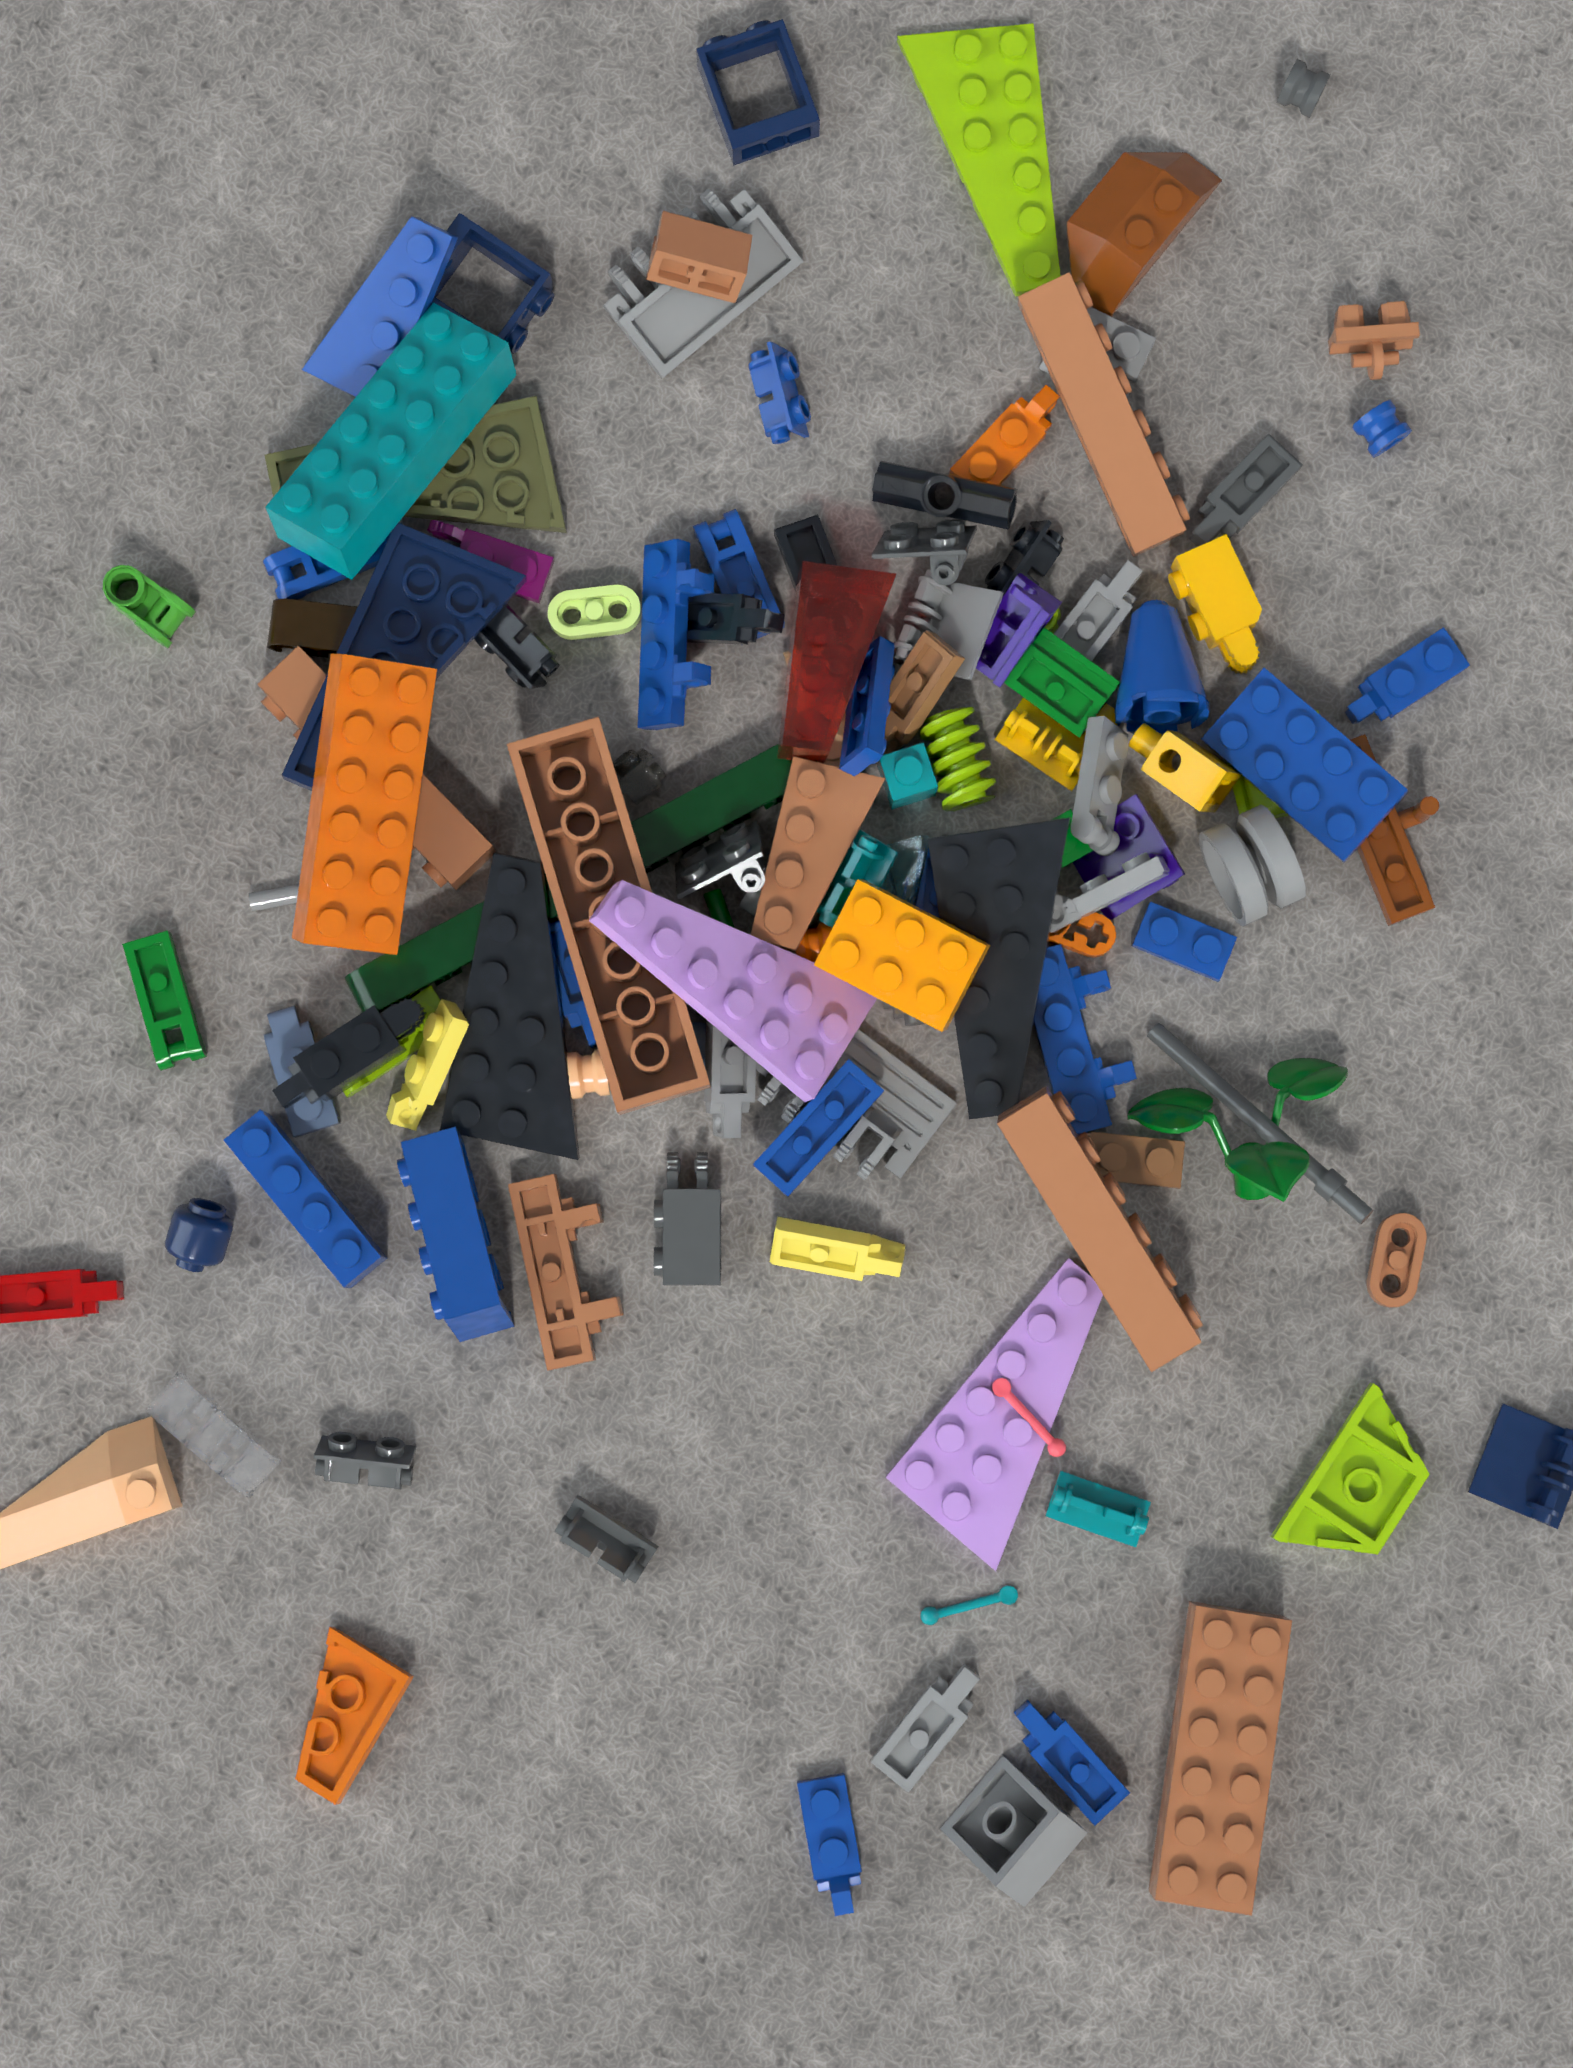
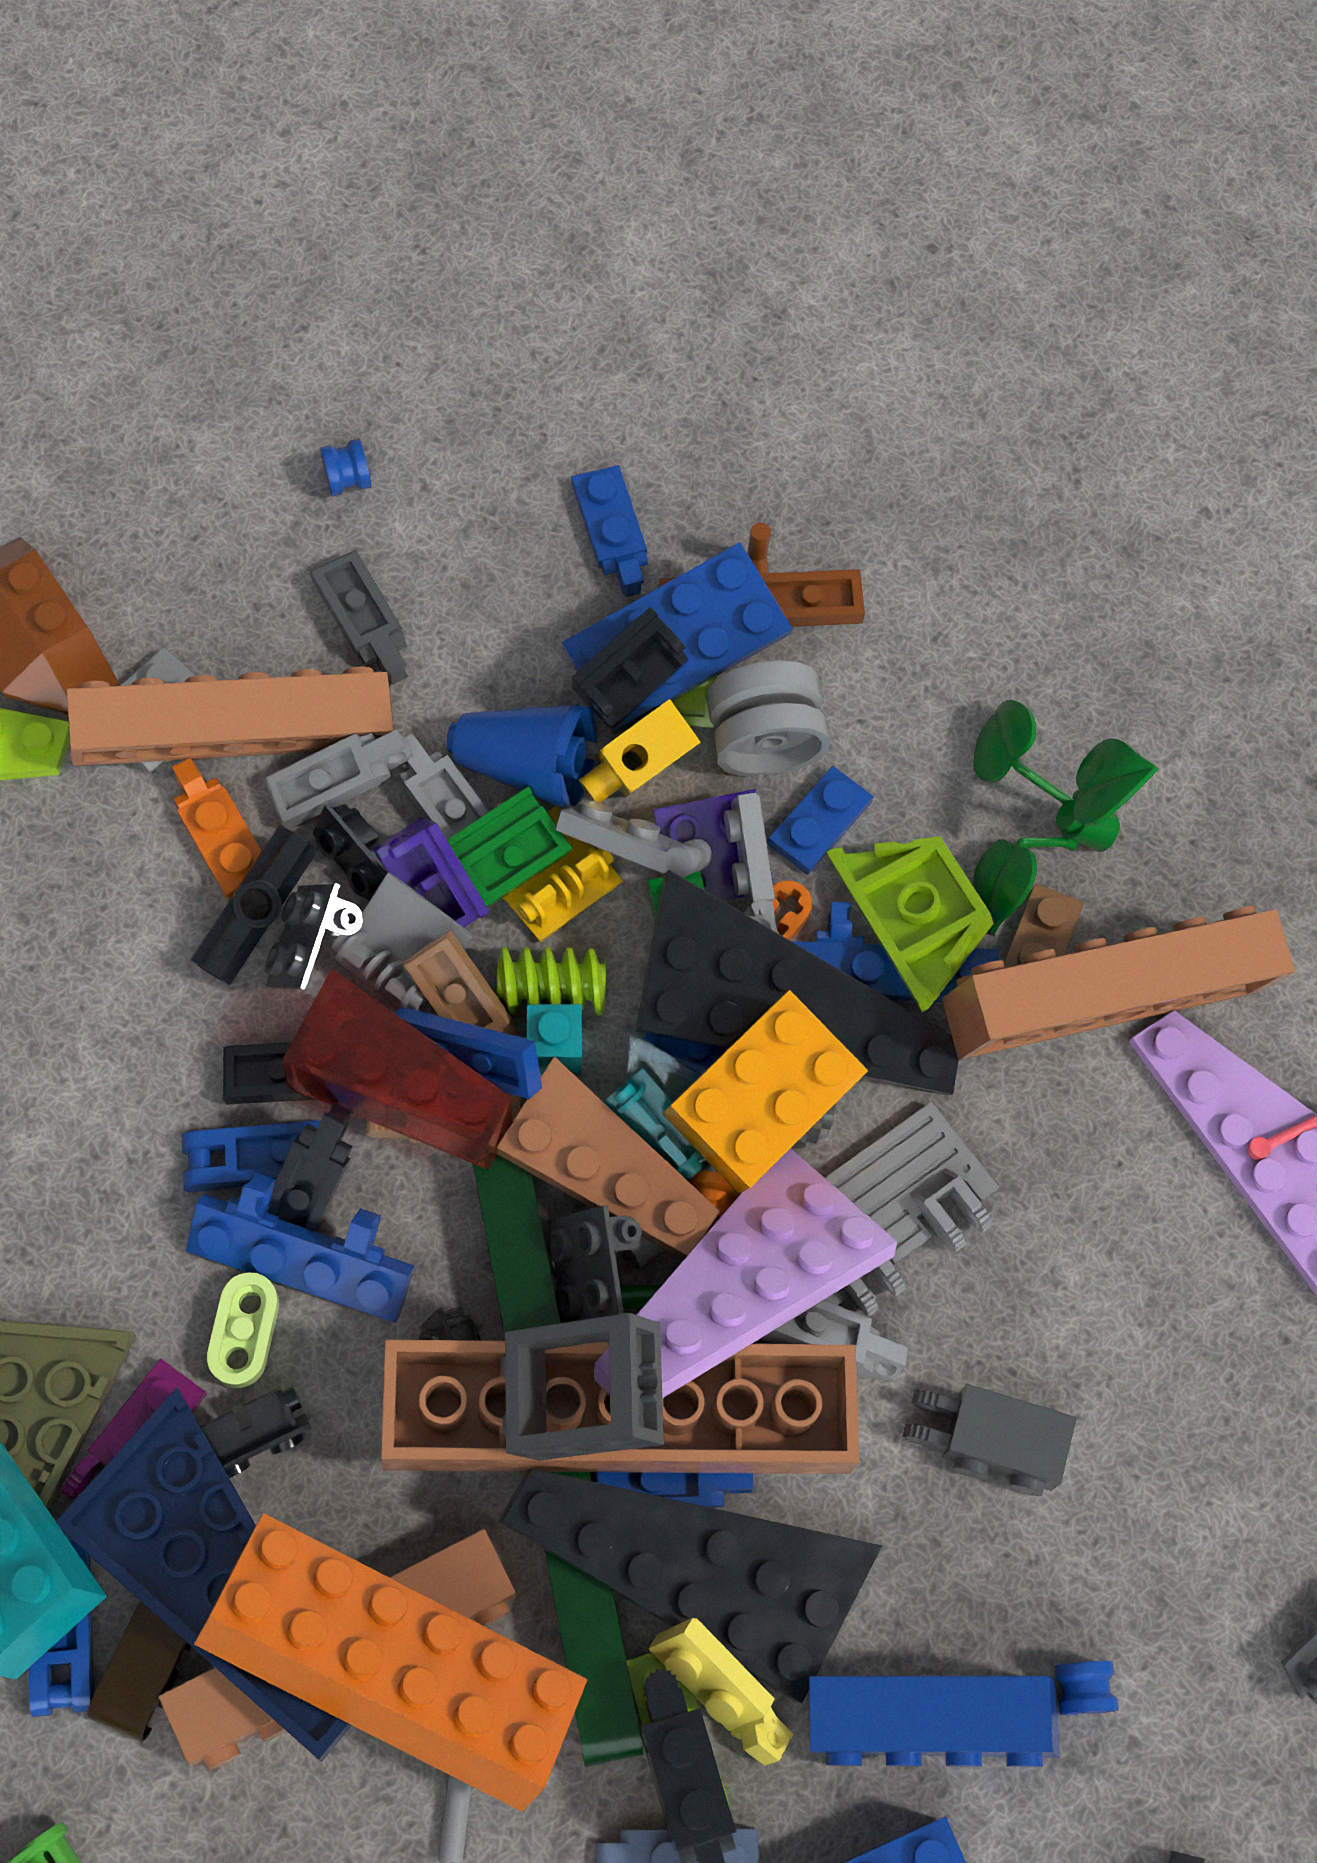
camera: 80 degrees left, 15 degrees down
(514, 1347) = (1086, 1688): none -> blue wheel
(545, 1233) = (1054, 1617): nougat hinge -> none
(584, 915) = (634, 1388): none -> dark grey window
(586, 1074) = (786, 1499): light nougat wheel -> none
(776, 375) = (45, 1047): blue hinge -> none
(818, 1128) = (926, 1254): blue plate -> none
(834, 1250) = (1062, 1284): light yellow hinge -> none
(1082, 520) = (335, 775): none -> light grey hinge
(1118, 1042) = (917, 909): none -> lime wing
(1219, 600) = (472, 671): yellow hinge -> none
(1250, 731) = (630, 668): none -> black hinge
(1327, 1183) = (1055, 789): dark grey bar -> none
(1392, 333) = (252, 445): nougat hips -> none
(1398, 1261) = (1214, 715): nougat plate -> none

